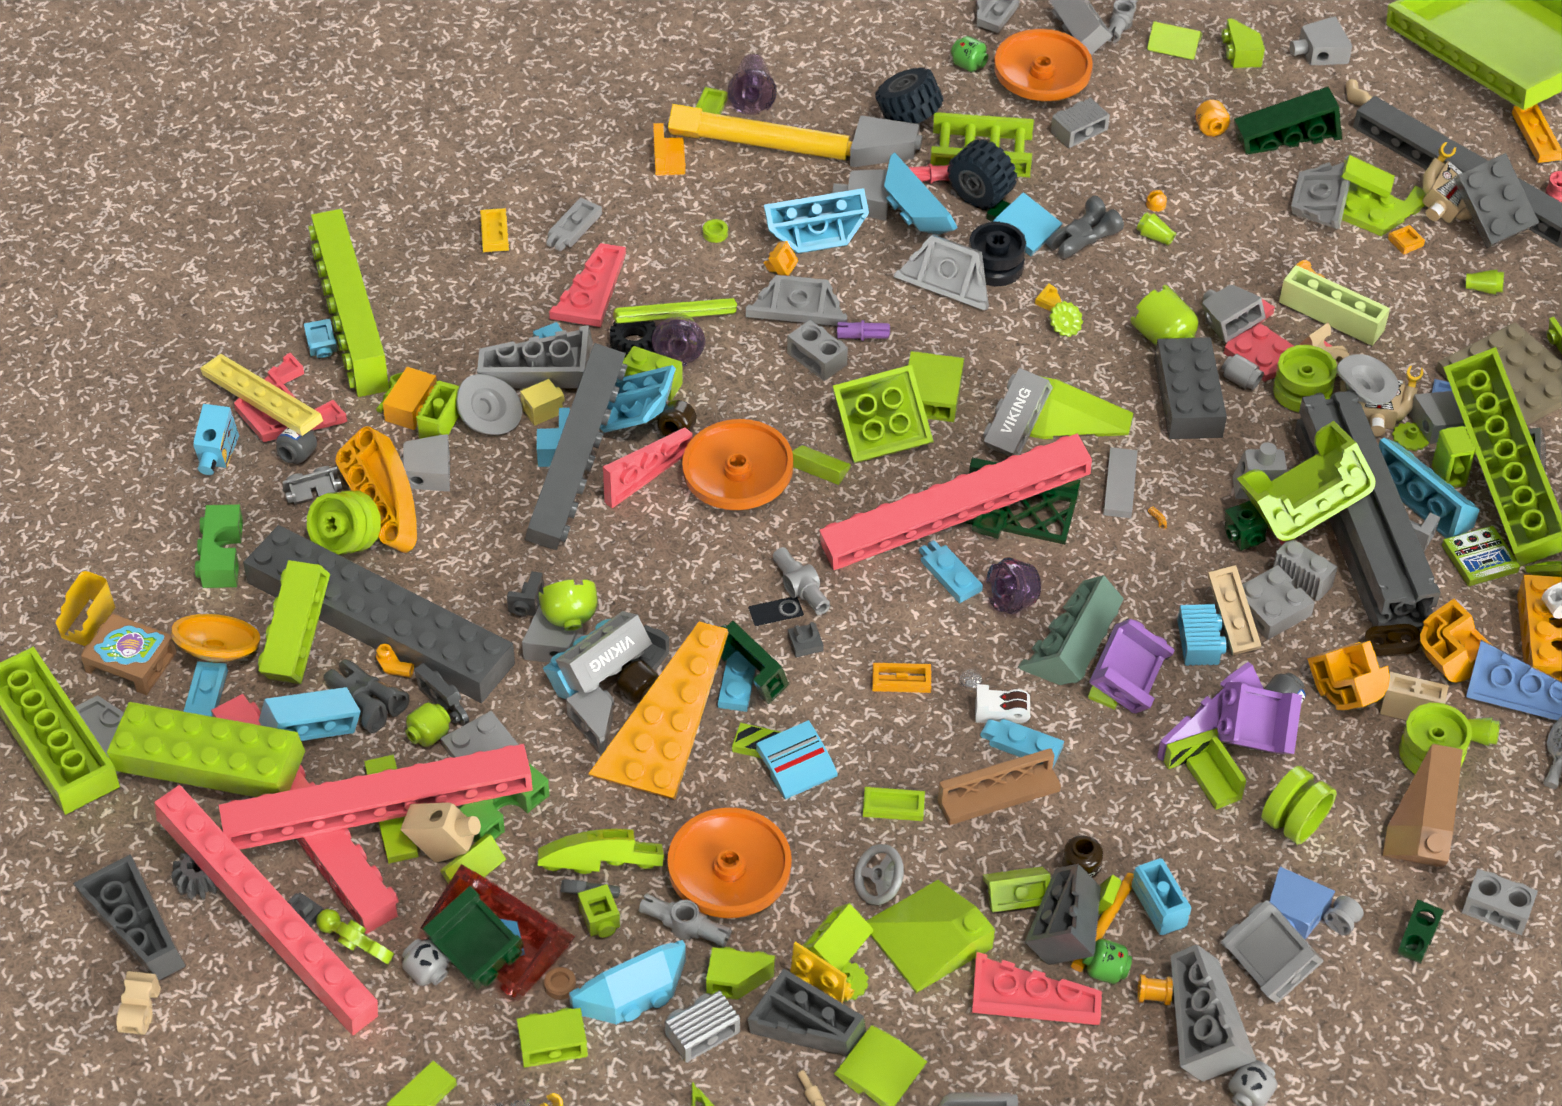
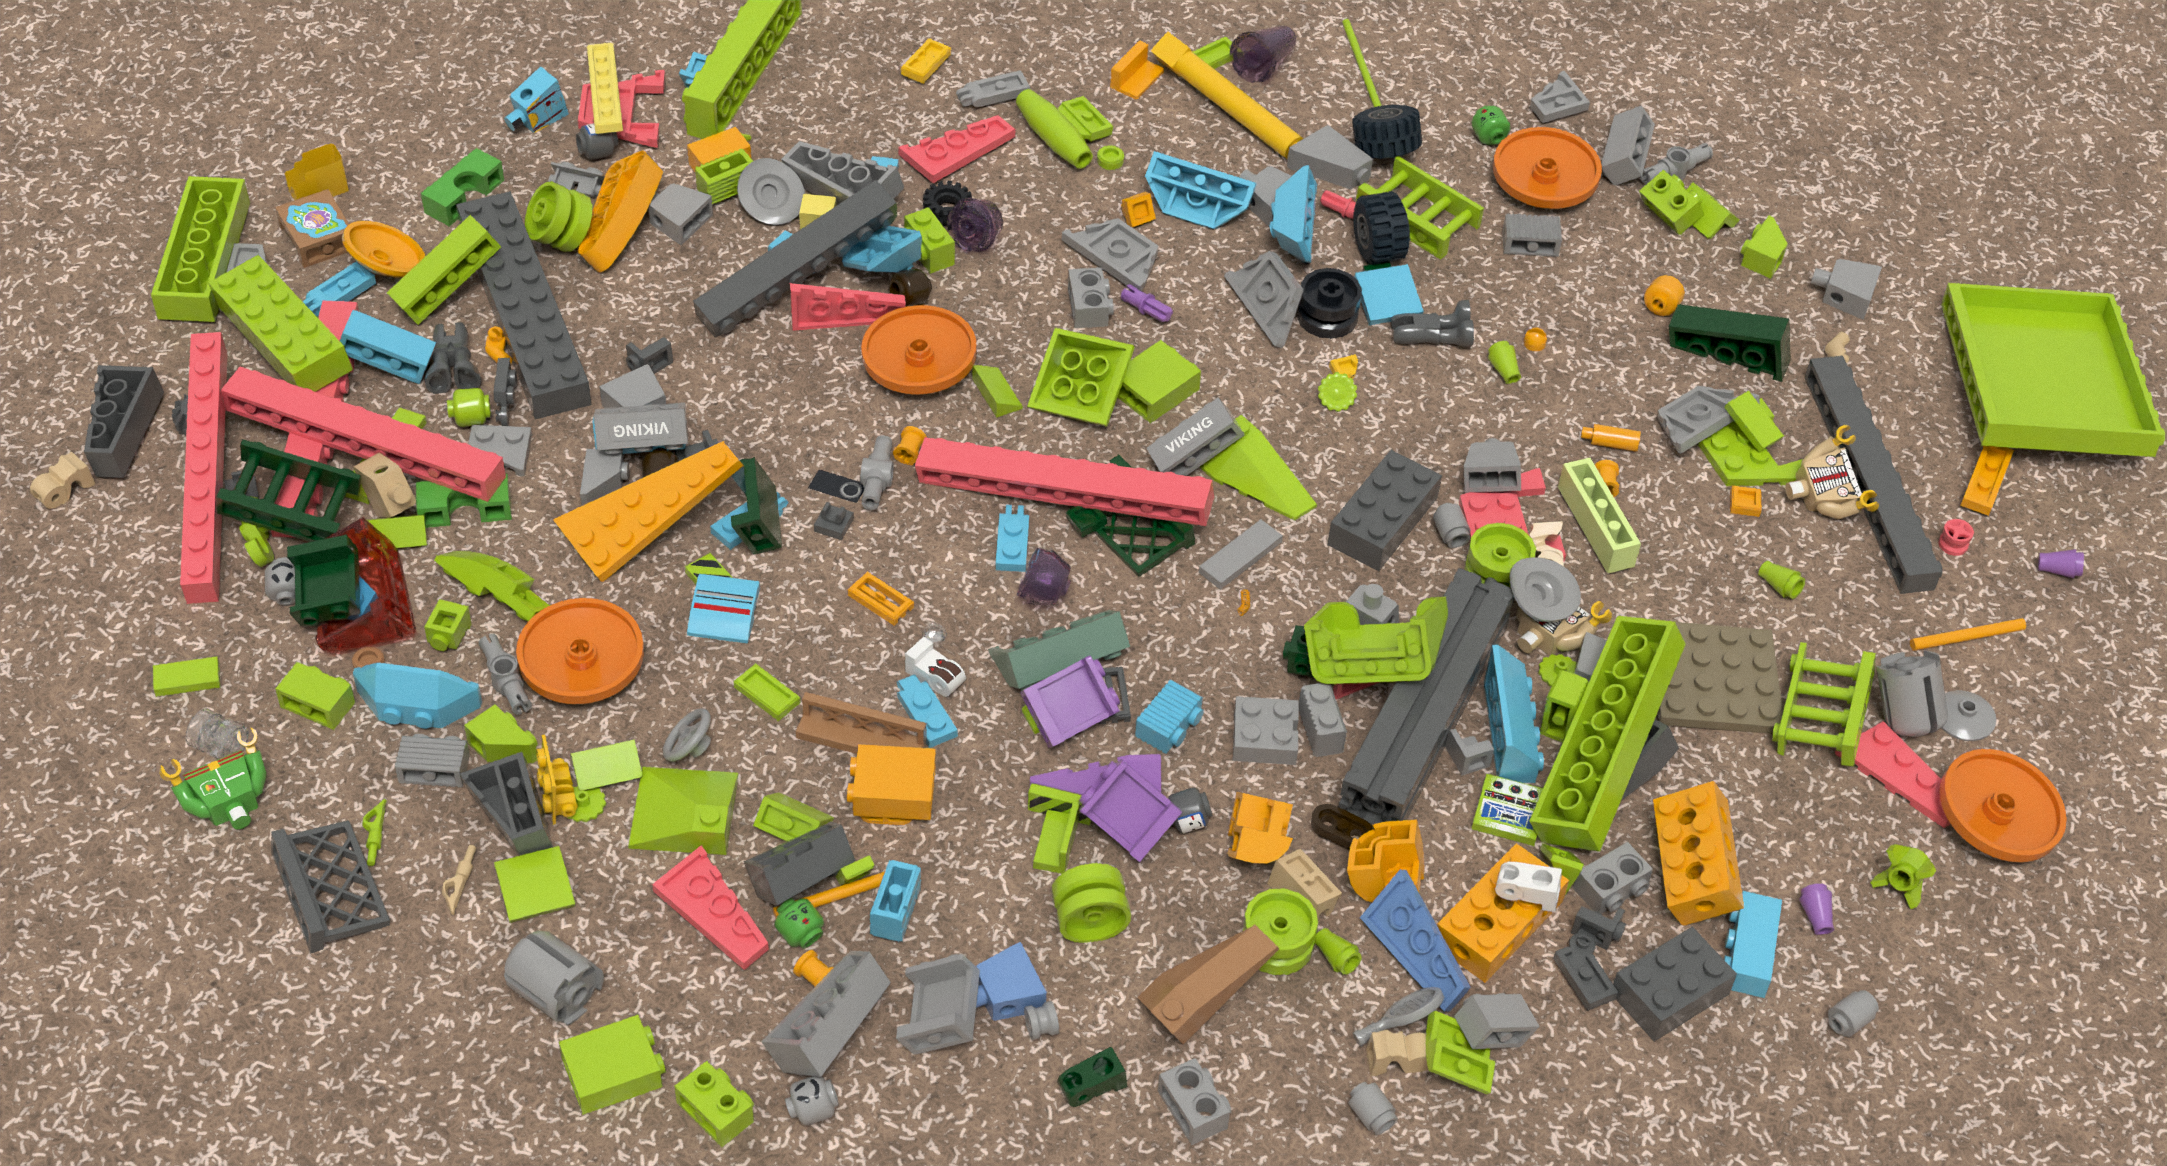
camera: 35 degrees right, 0 degrees up
(366, 913) = (279, 518): none -> dark green fence
(569, 604) = (654, 375): lime cylinder -> none
(578, 886) = (448, 594): dark grey bar -> none
(659, 223) = (1065, 126): none -> lime plate
(662, 311) = (1002, 201): lime axle -> none
(805, 548) = (908, 449): none -> light orange bush
(823, 55) = (1361, 63): none -> lime axle
(1069, 808) = (892, 784): none -> light orange brick
(1085, 852) = (865, 828): dark brown head -> none
(1151, 44) = (1672, 202): none -> lime brick
(1165, 316) = (1422, 434): lime cylinder -> none
(1234, 610) = (1216, 713): tan plate -> none
(1280, 243) = (1612, 437): none -> light orange cylinder
(1496, 200) = (1853, 507): brick -> none

